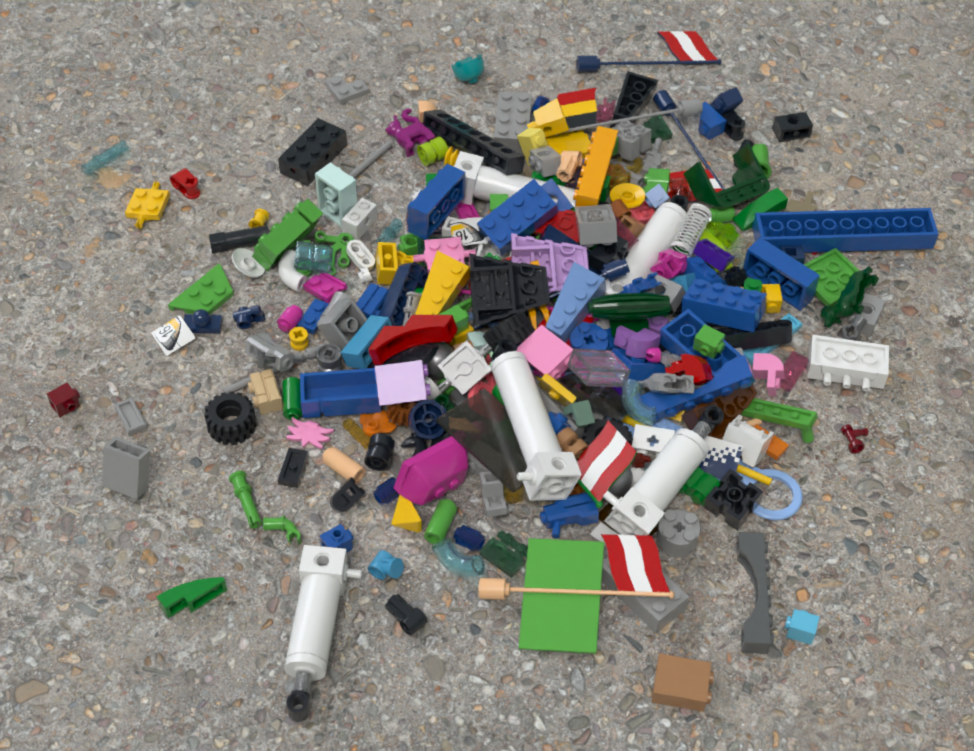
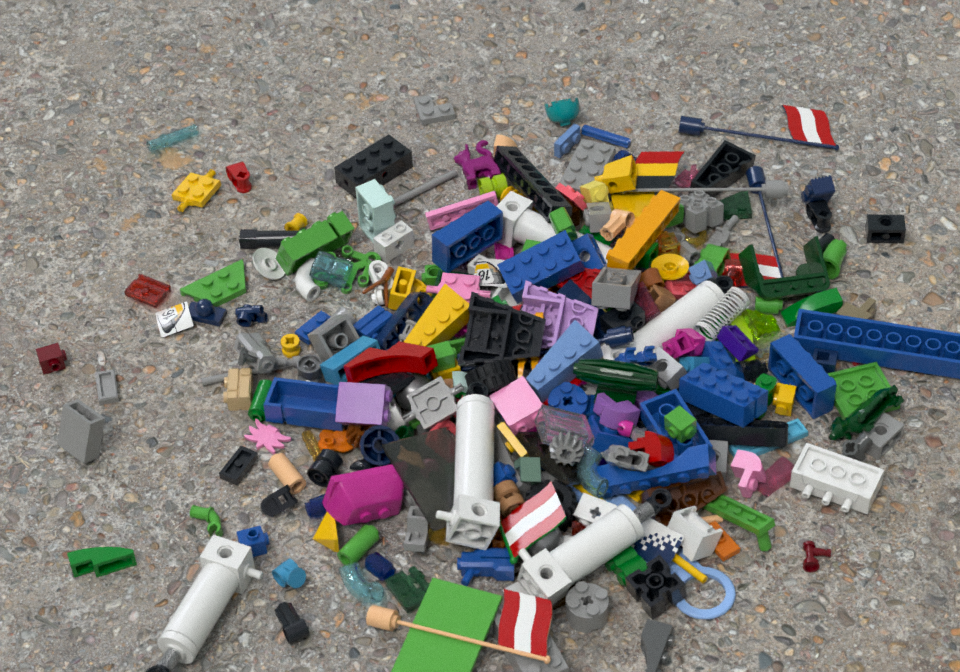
camera: 20 degrees right, 5 degrees down
(136, 312) = (147, 290): none -> clear red plate
(230, 430) = (195, 418): black tyre -> none
(243, 492) = (183, 478): bright green pin -> none
(289, 318) = (289, 324): dark pink brick -> none
(324, 286) = (333, 299): dark pink plate -> none
(366, 259) = (384, 280): none -> dark orange plant
(389, 231) = (419, 259): clear light blue axle -> none
(412, 178) = (443, 216): none -> bright pink fence
(482, 96) = (567, 141): none -> medium blue plate
(514, 86) = (605, 136): none -> blue axle
(517, 146) = (572, 195): none -> coral wing
(524, 173) = (562, 221): none -> bright green brick
(612, 386) = (566, 449): none -> light grey gear
(711, 122) = (796, 208): blue slope -> none

